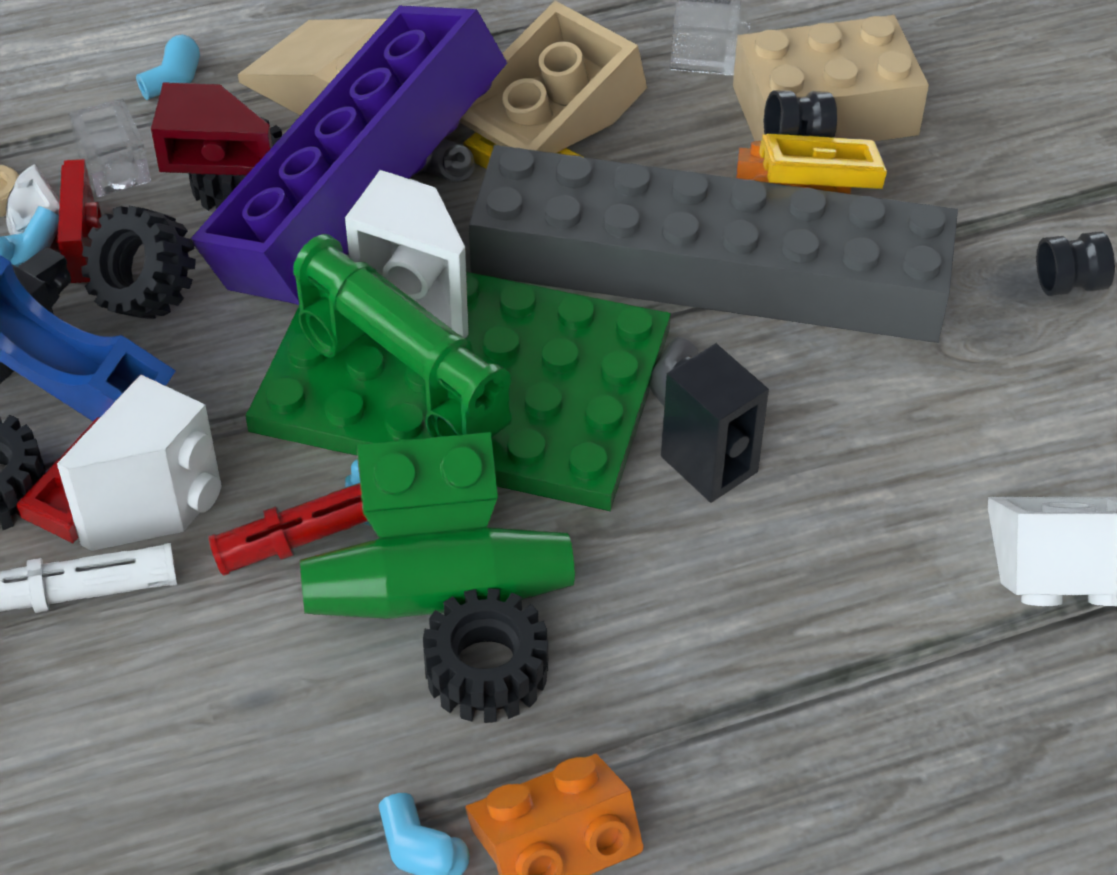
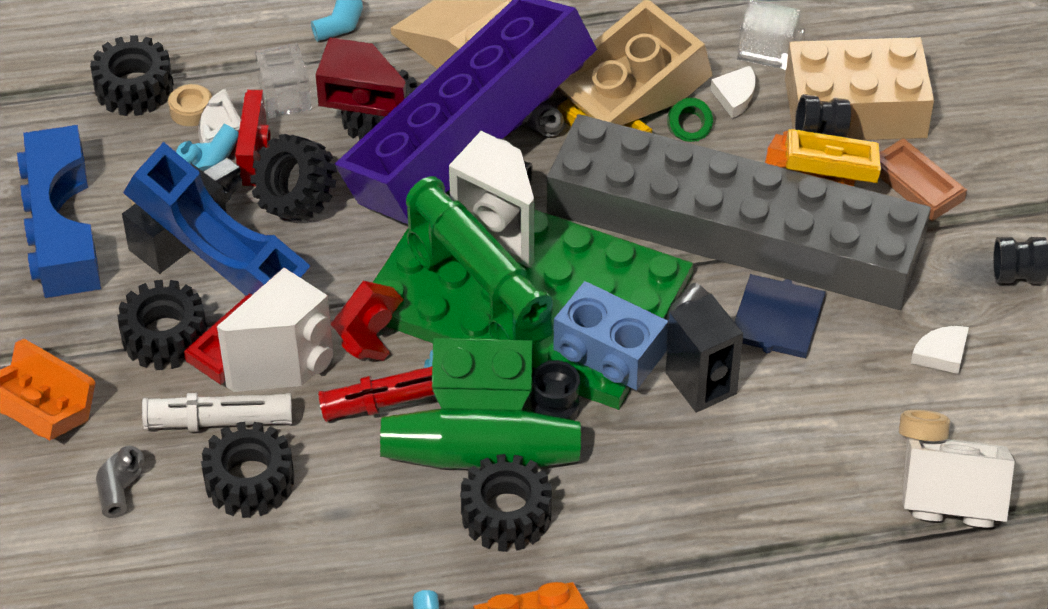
camera: 10 degrees right, 0 degrees up
(129, 686) = (253, 491): none -> black tyre
(255, 430) = (363, 317): none -> red bracket
(527, 495) = (555, 390): none -> black wheel
(588, 414) = (610, 335): none -> medium blue brick
(633, 127) = (693, 106): none -> green piece
(676, 103) = (734, 90): none -> white tile
(794, 363) = (779, 315): none -> dark blue piece
(923, 180) = (919, 179): none -> nougat tile
(1005, 384) = (941, 349): none -> white tile
(1011, 482) = (924, 425): none -> tan tile

